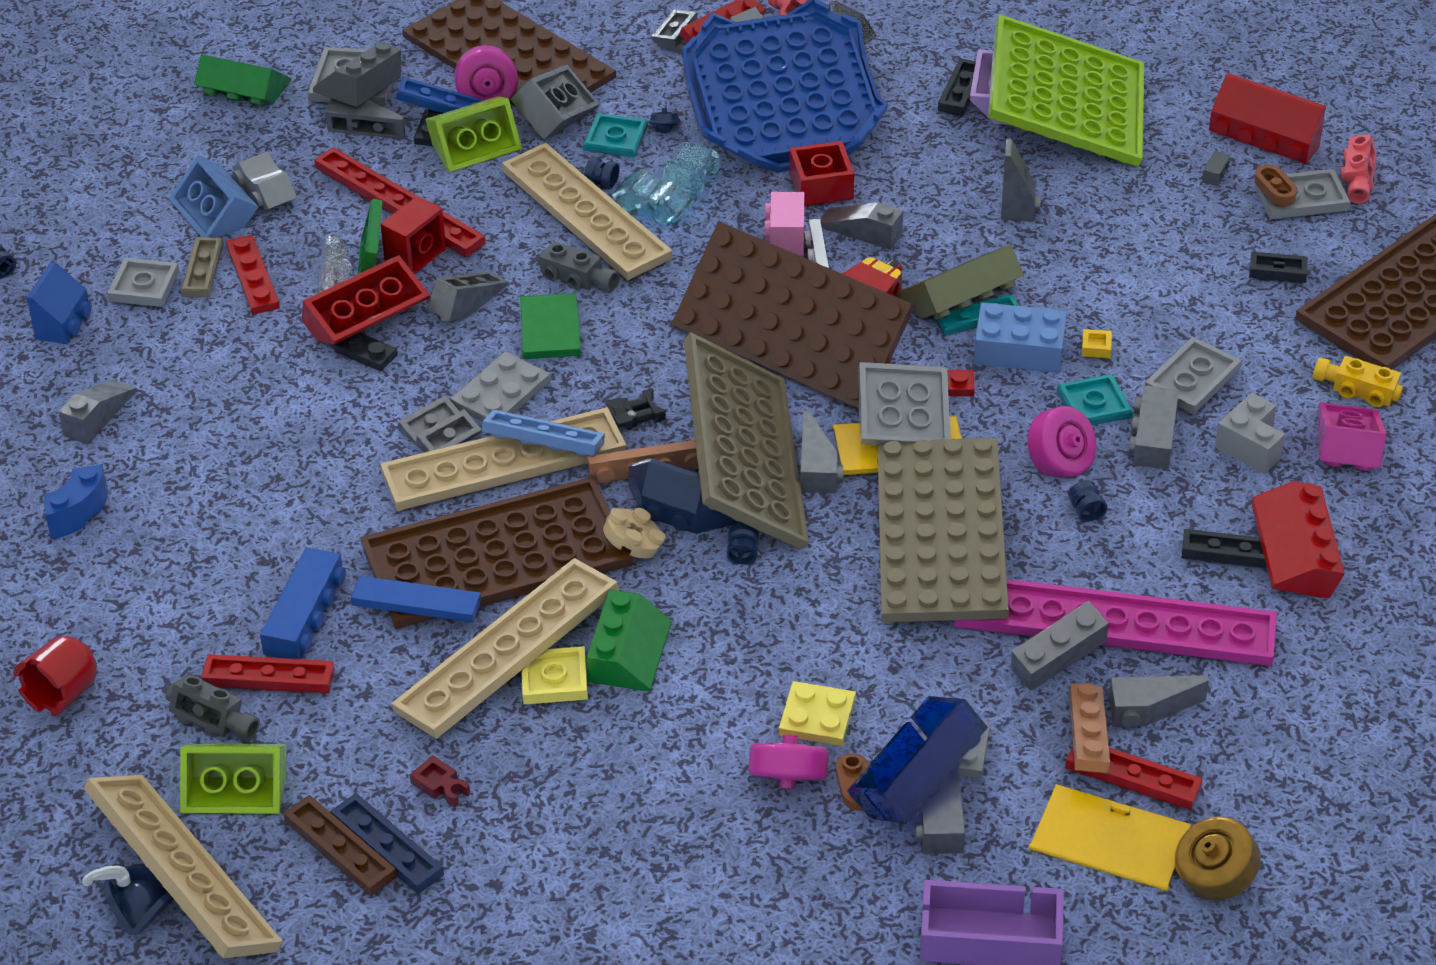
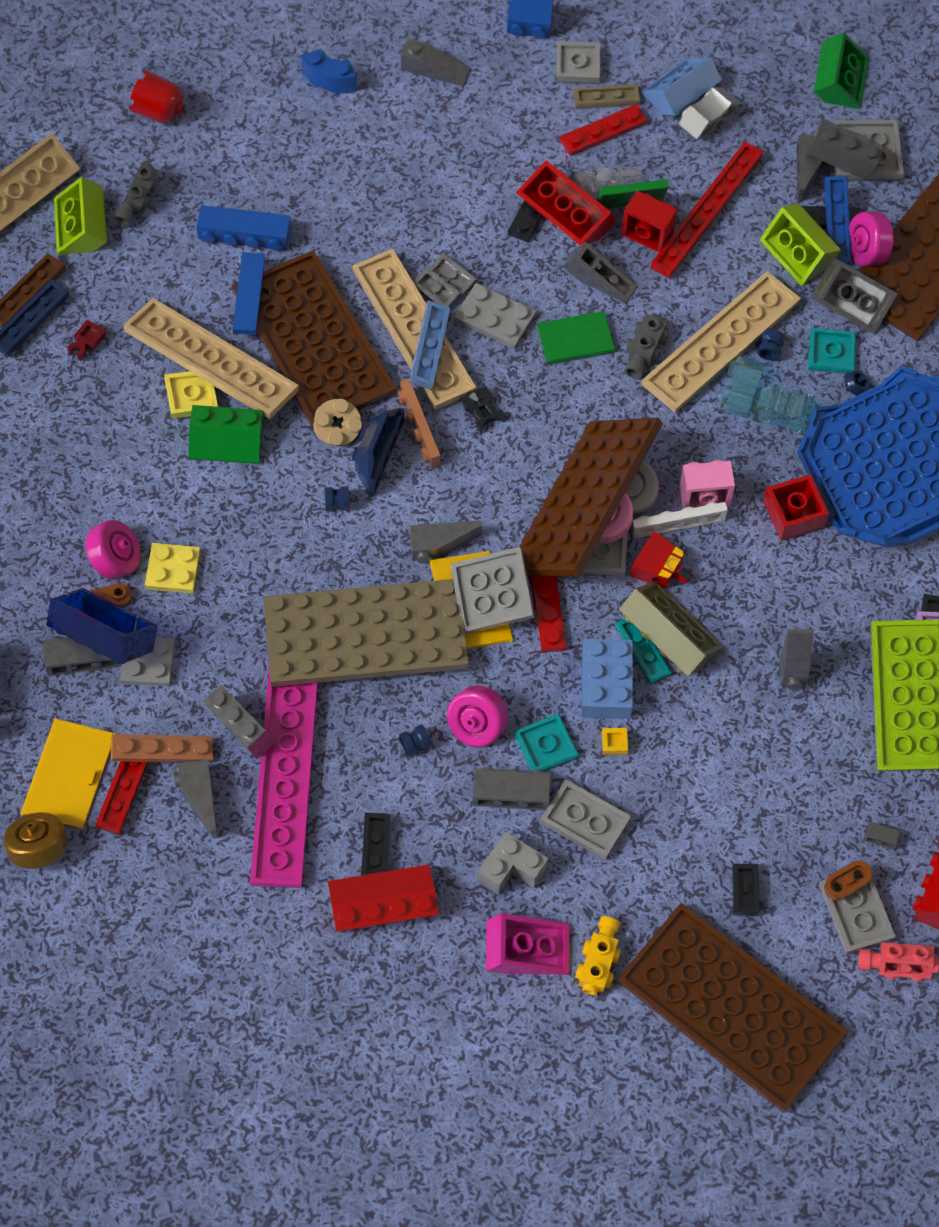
camera: 80 degrees right, 20 degrees up
(268, 673) = (177, 221): red plate -> none
(744, 442) = (432, 478): dark tan plate -> none
(868, 222) = (742, 549): flat silver slope -> none

